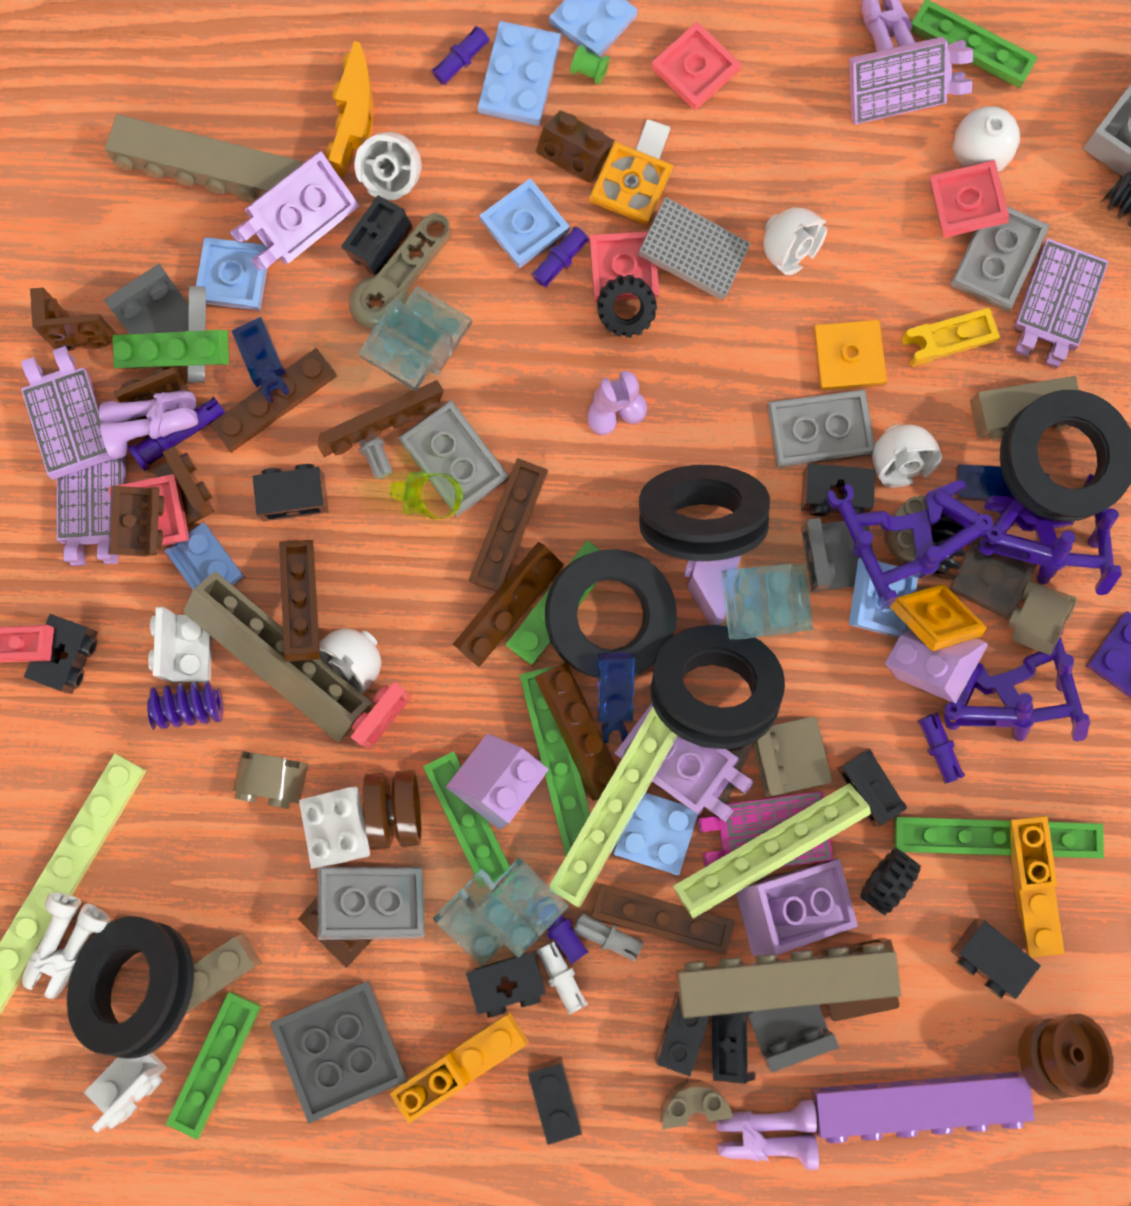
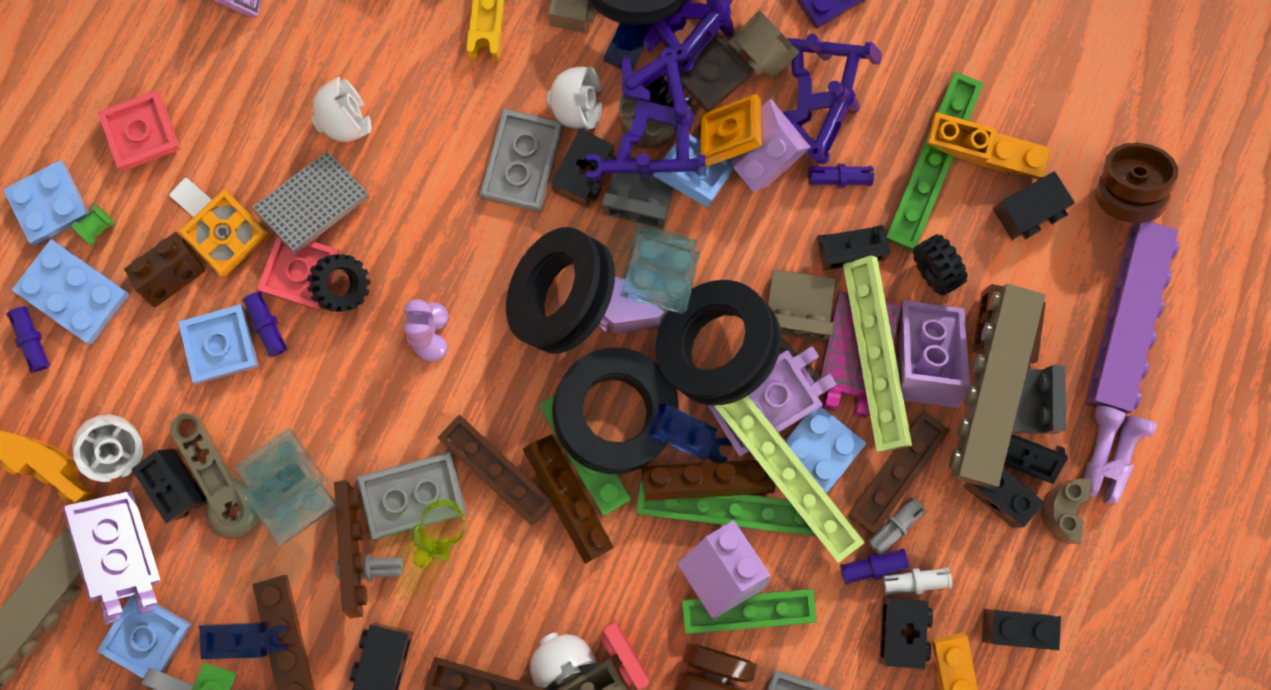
camera: 70 degrees left, 0 degrees up
(500, 912) = (845, 607): clear light blue bracket -> none
(850, 355) = (466, 108): light orange plate -> none

